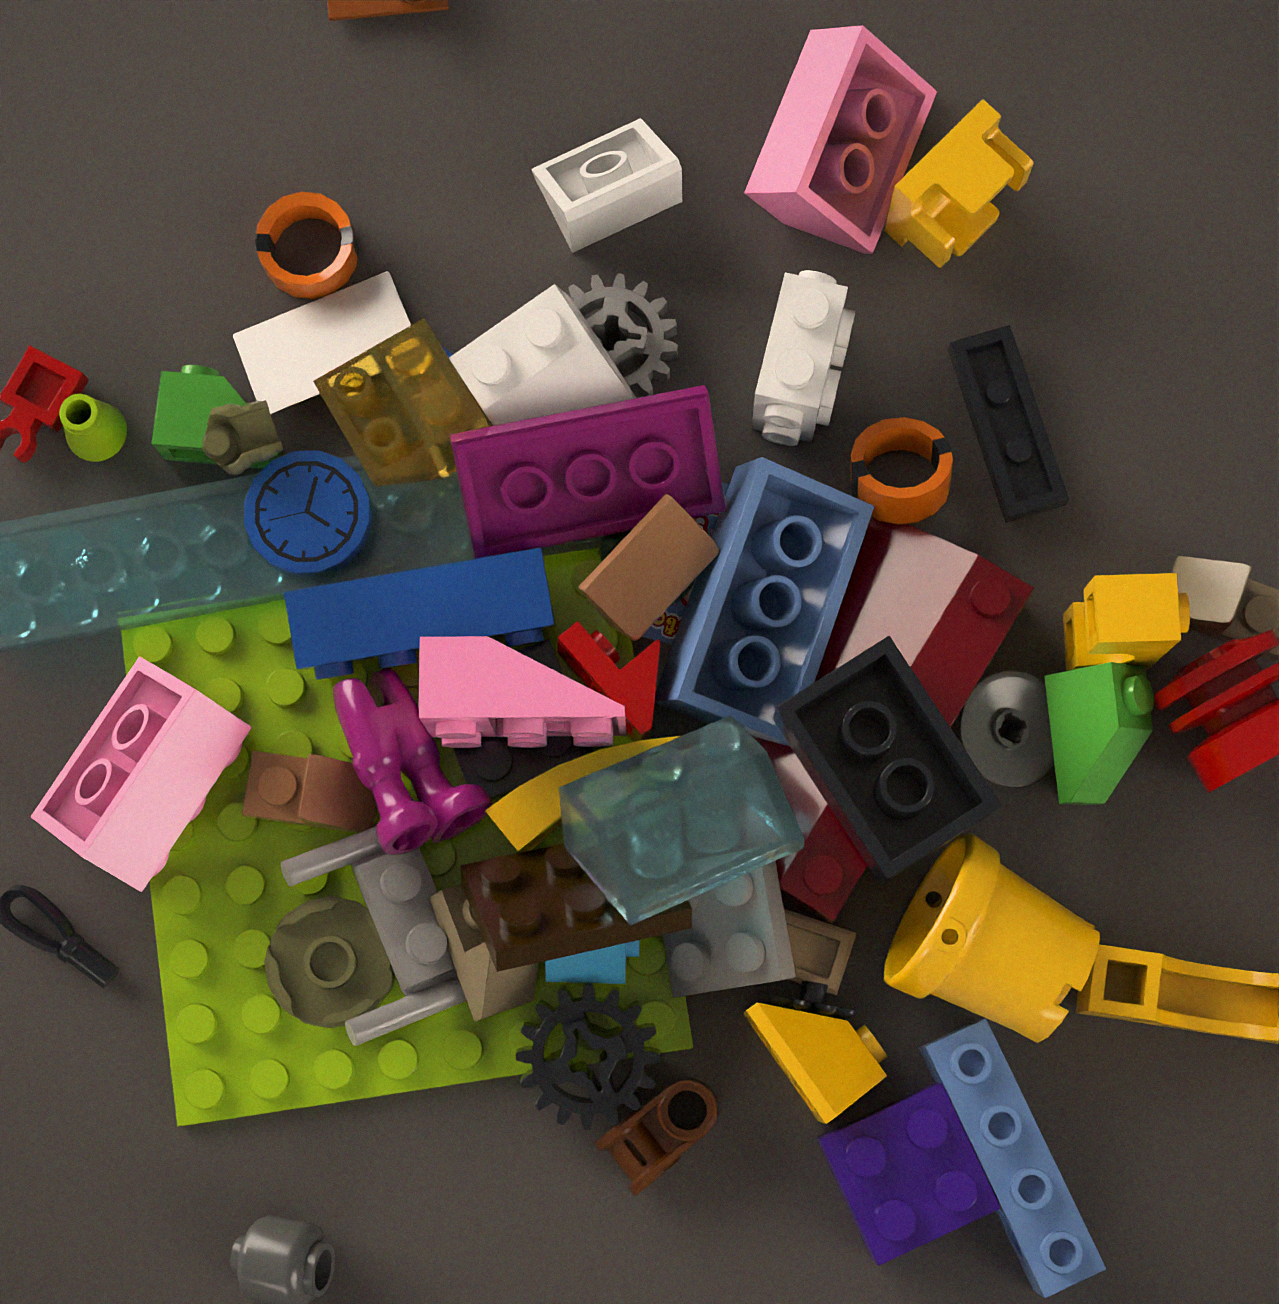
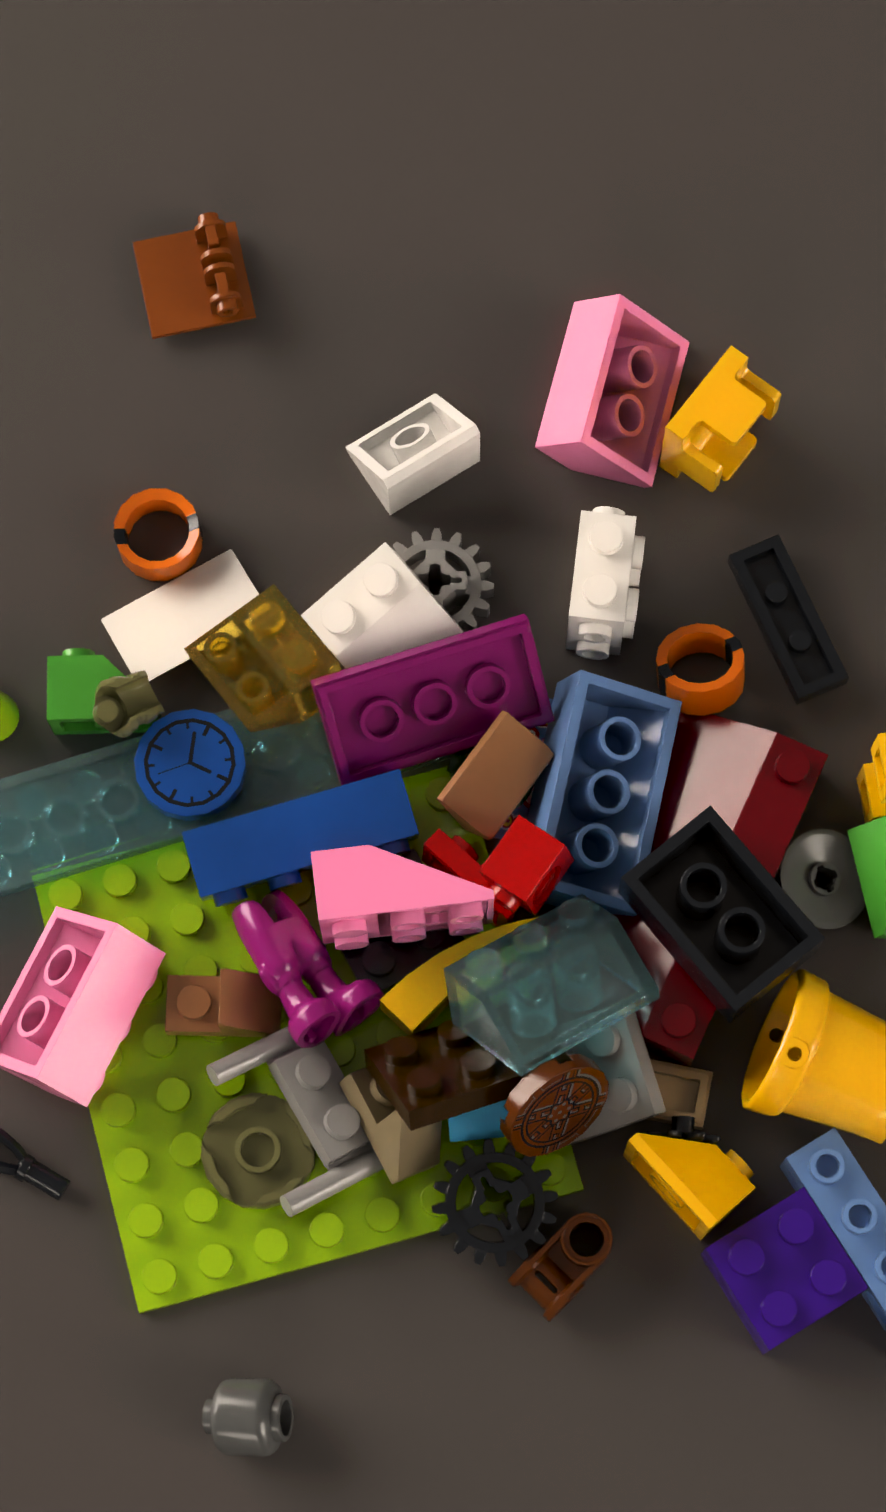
camera: 10 degrees left, 5 degrees down
(666, 958) = (554, 1105): none -> reddish brown tile
(668, 680) = (525, 866): none -> red brick

